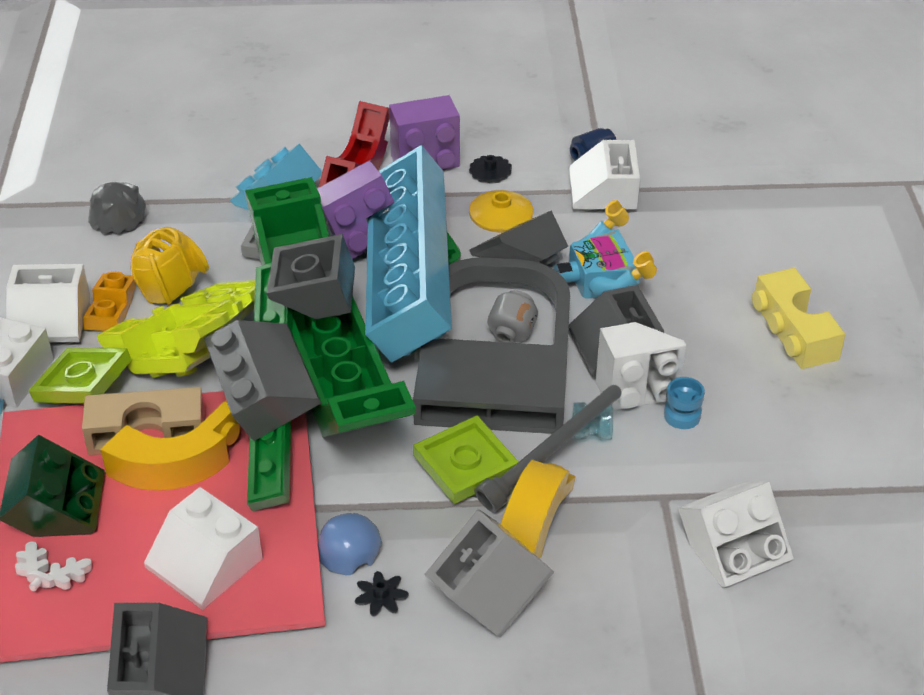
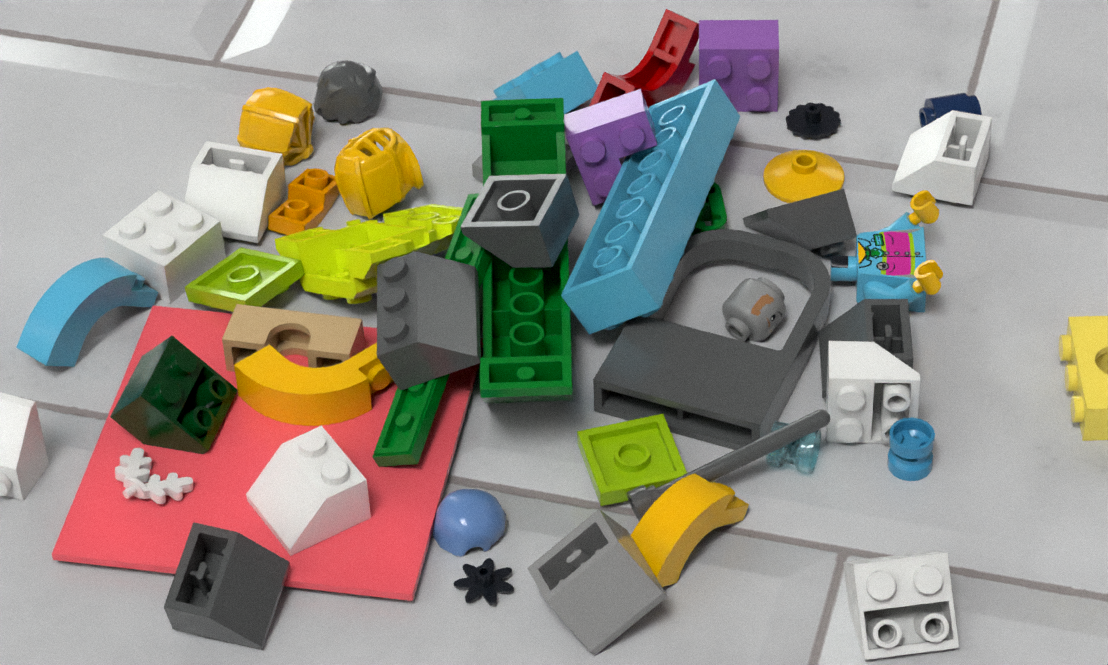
camera: 20 degrees right, 0 degrees up
(67, 240) = (278, 124): none -> yellow piece

